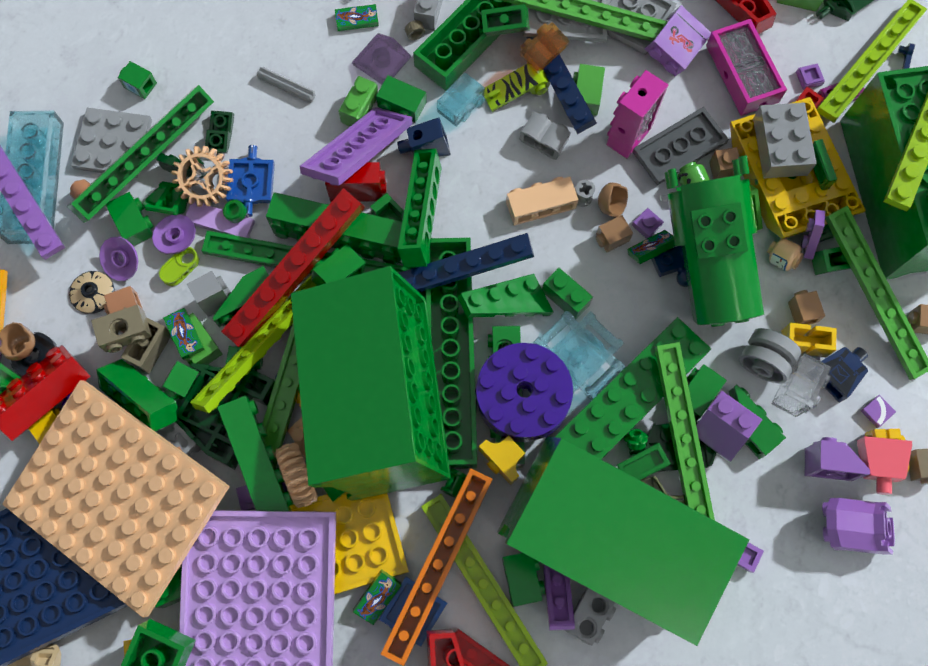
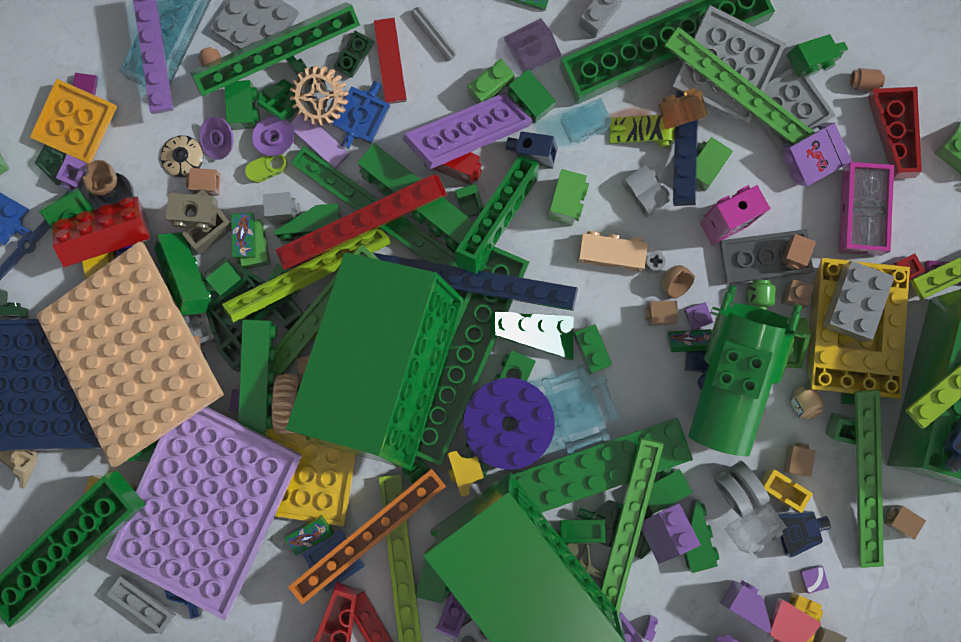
camera: 25 degrees right, 10 degrees up
(234, 211) = (334, 139): green tile -> none
(256, 124) = (390, 60): none -> red tile
(340, 265) = (399, 239): green brick -> none
(414, 30) = (575, 31): dark tan axle -> none
(478, 168) = (567, 196): none -> bright green brick
(505, 20) = (658, 69): green brick -> none
(636, 439) = (587, 507): green plate -> none
(707, 126) = (798, 252): none -> nougat brick
(753, 533) = (648, 631): none -> medium lavender tile
(810, 76) = (925, 243): medium lavender tile -> none
(815, 228) = (838, 399): medium lavender plate -> none
(823, 168) = (880, 341): green tile -> none

